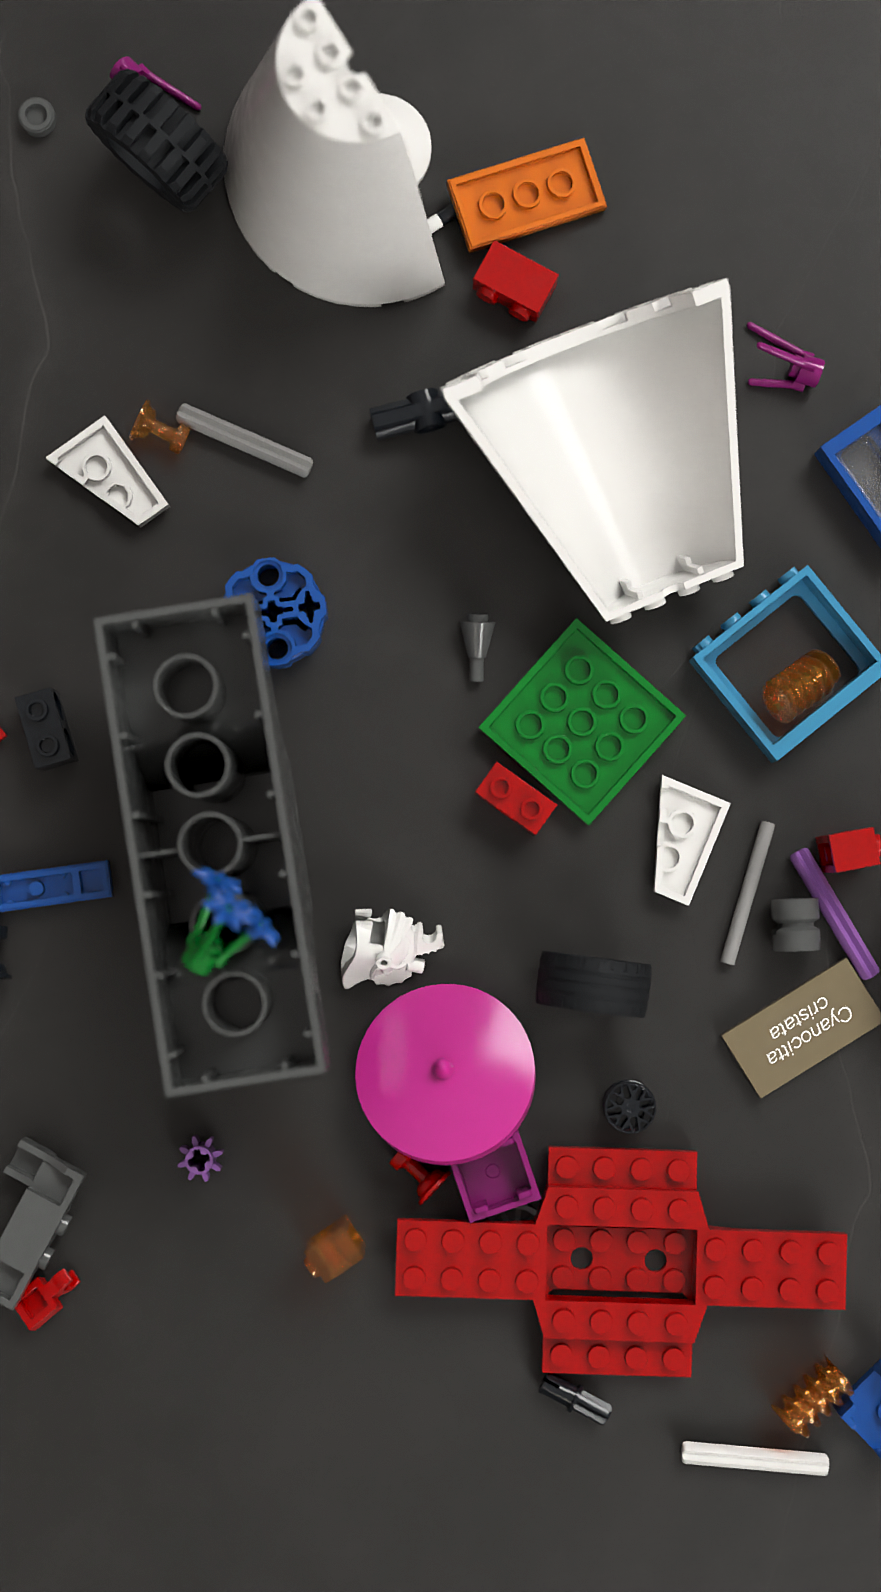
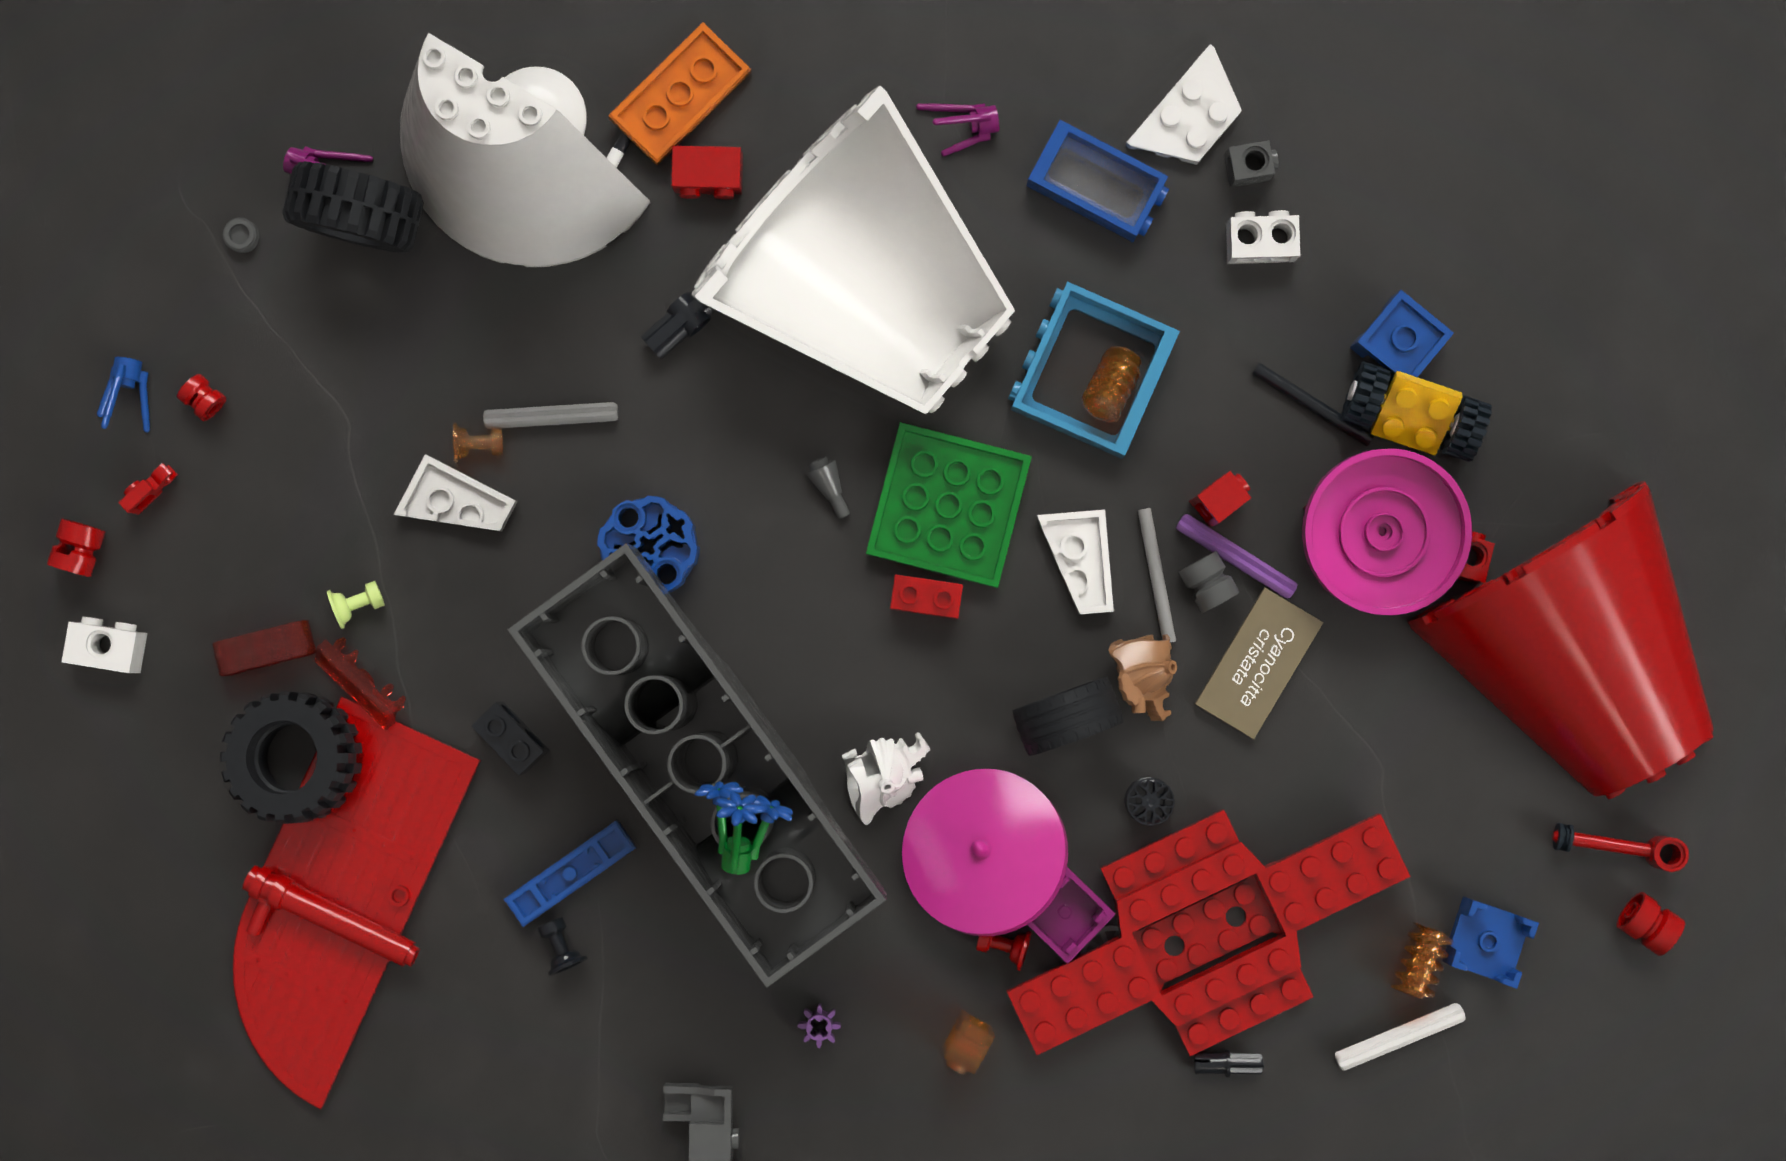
camera: 20 degrees left, 0 degrees up
(688, 980) = (1144, 673): none -> medium nougat helmet

